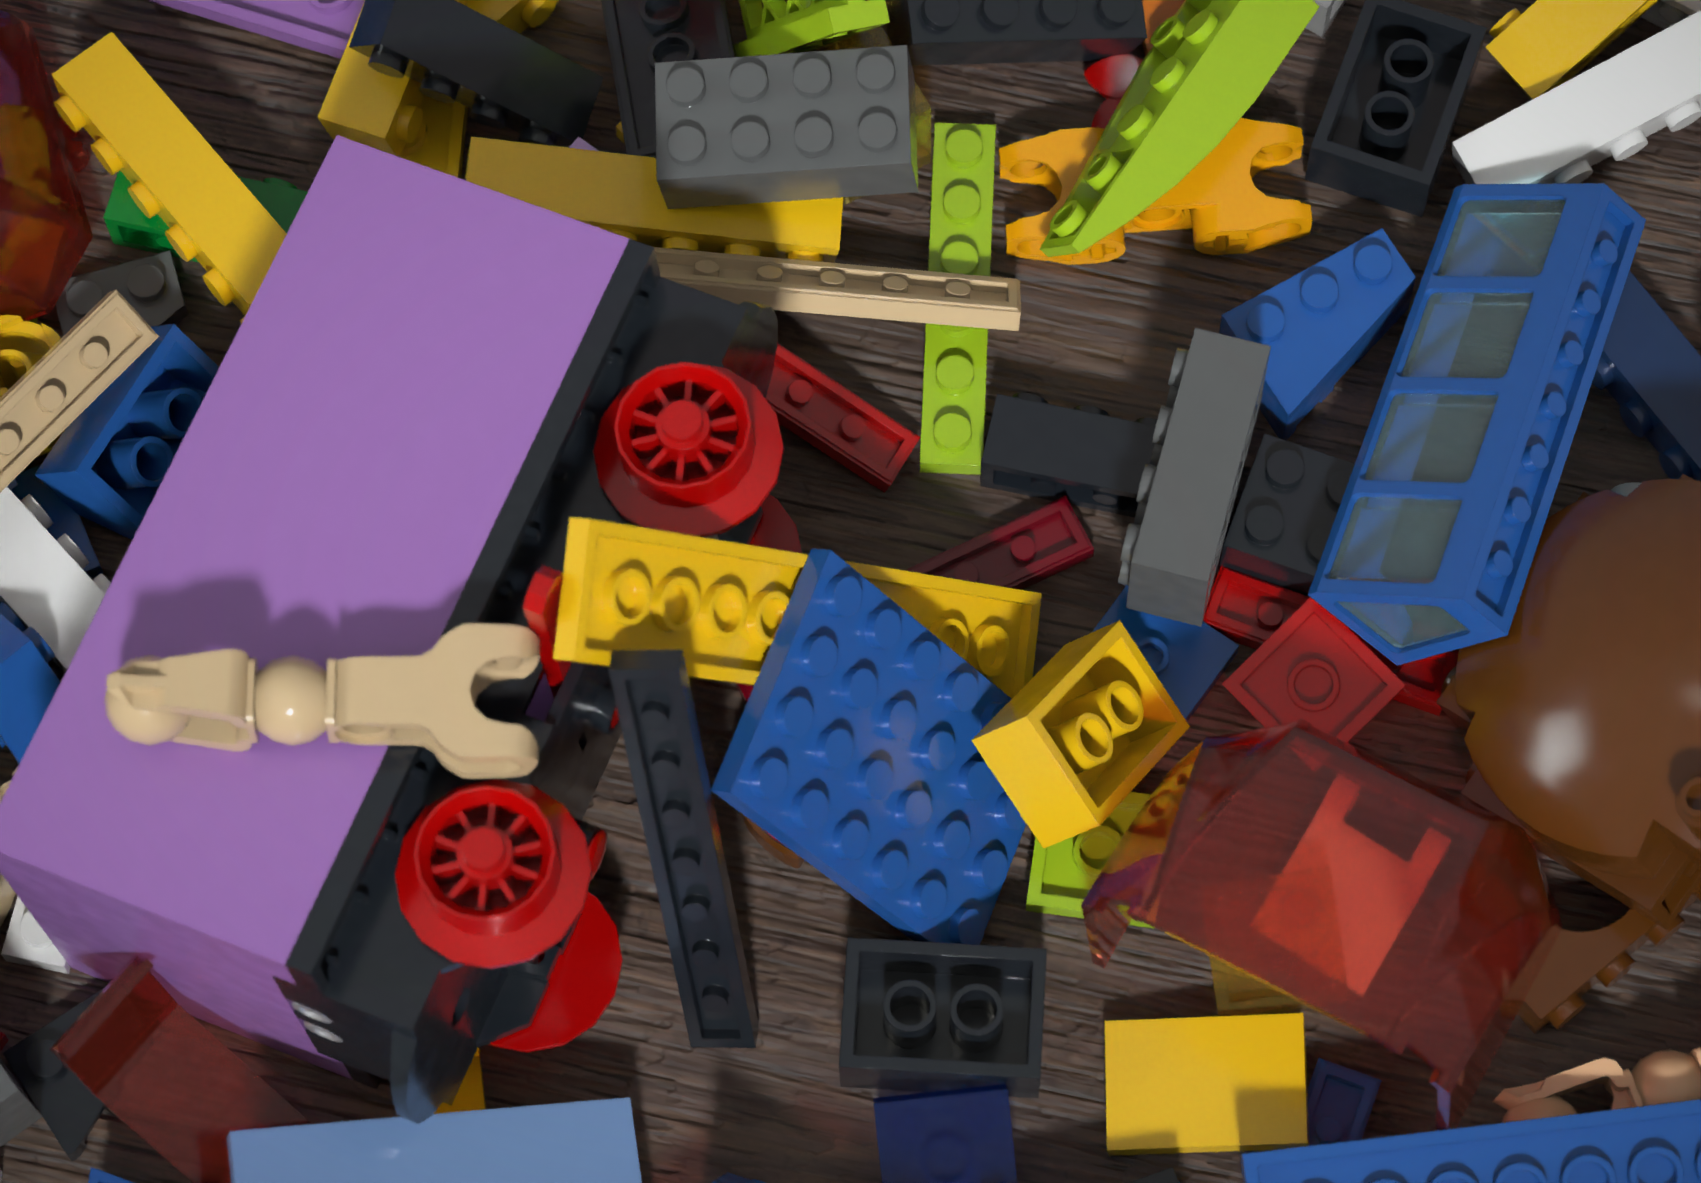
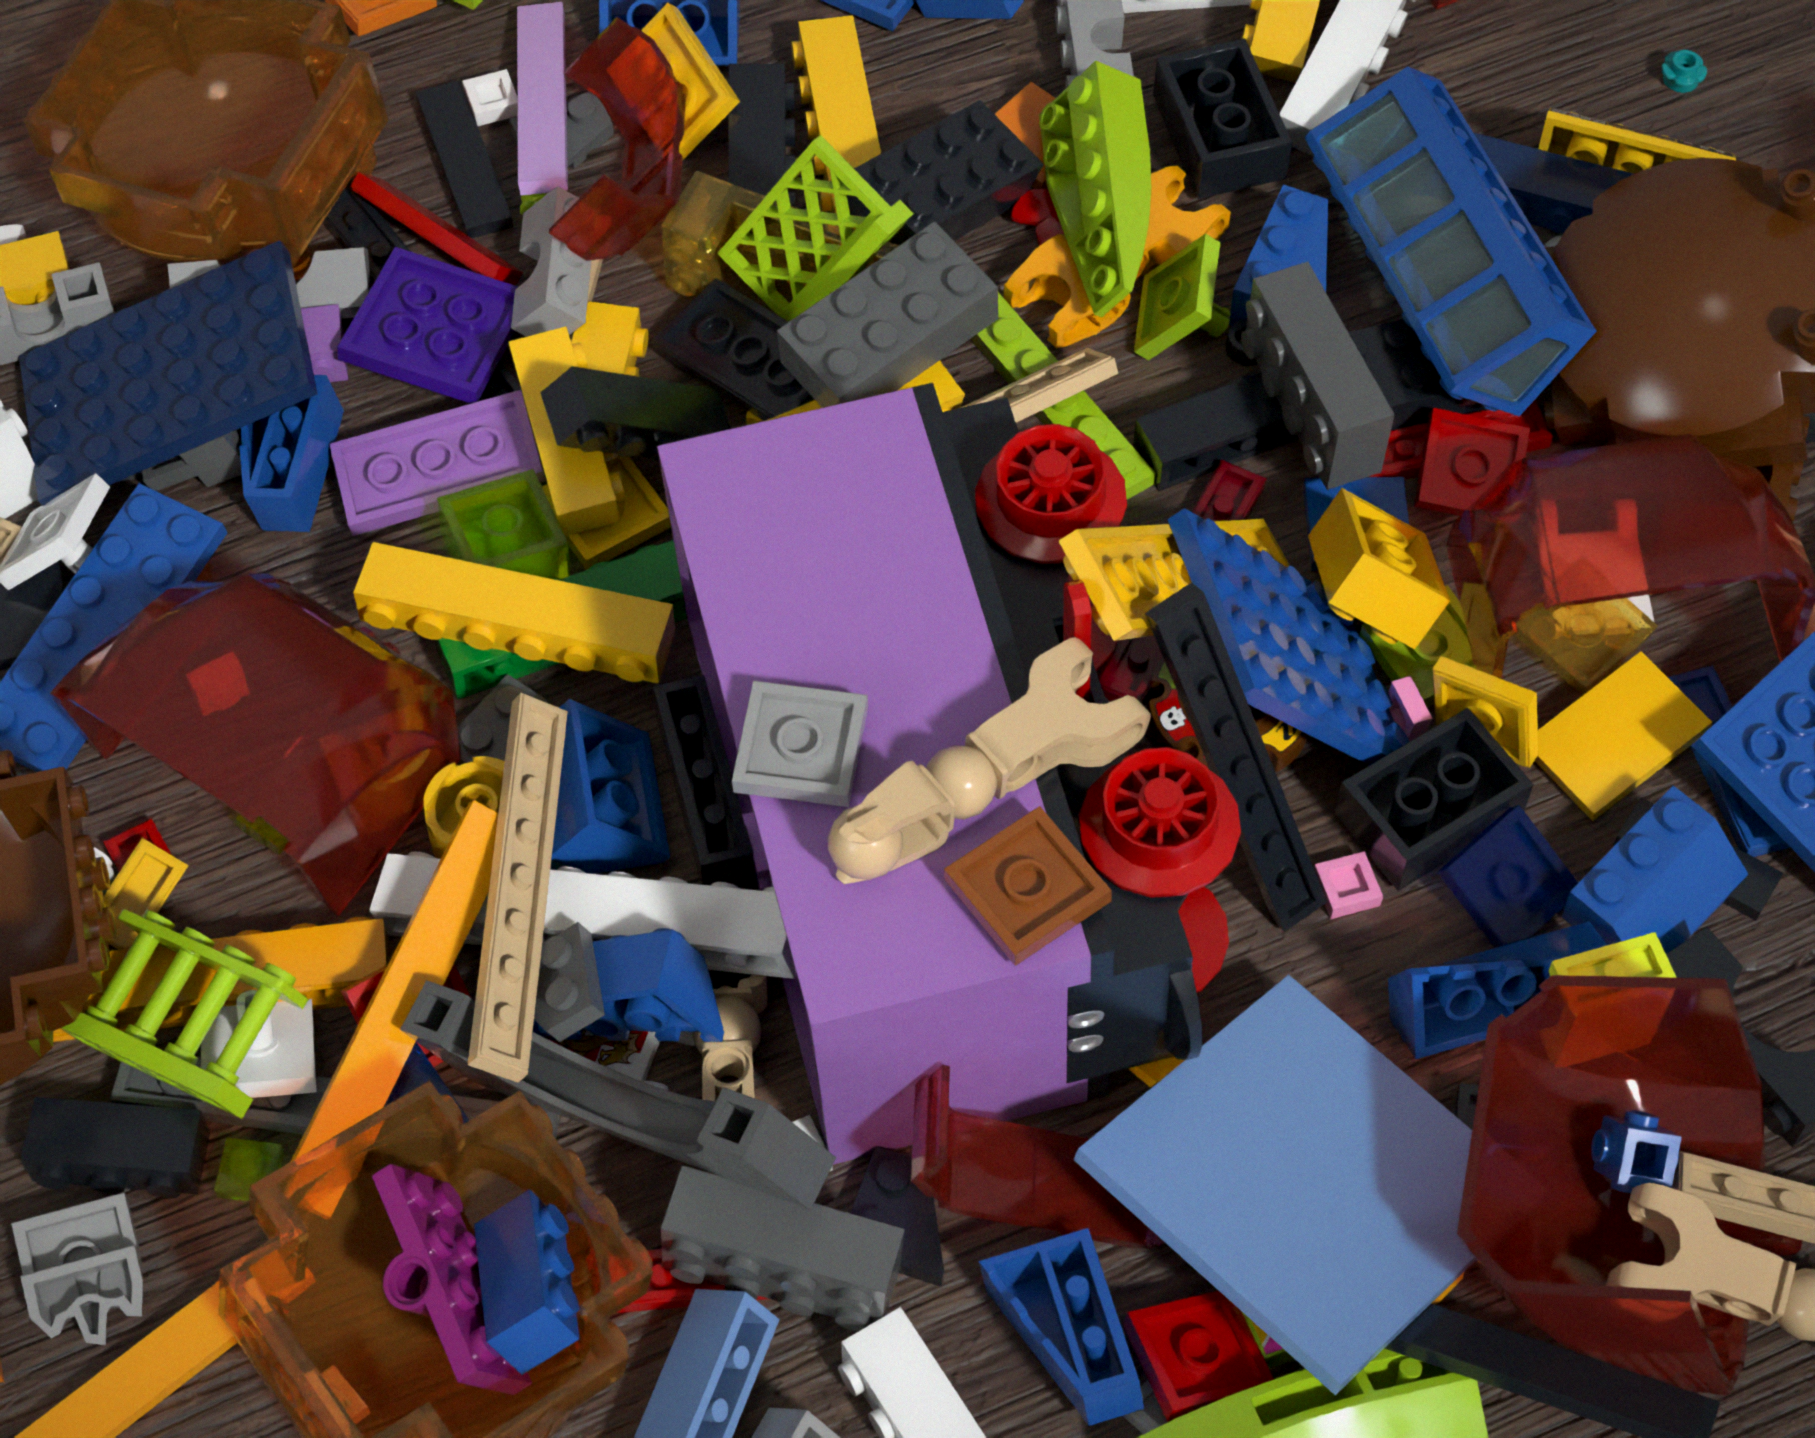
camera: 40 degrees left, 10 degrees down
(193, 552) = (800, 743): none -> light grey plate
(266, 101) = (505, 527): none -> clear neon green brick
(274, 851) = (1027, 885): none -> dark orange plate
(795, 1044) = (1348, 885): none -> bright pink tile
(1008, 906) = (1409, 708): none -> bright pink tile
(1068, 965) = (1500, 706): none -> yellow plate
(1164, 288) = (1180, 299): none -> lime tile

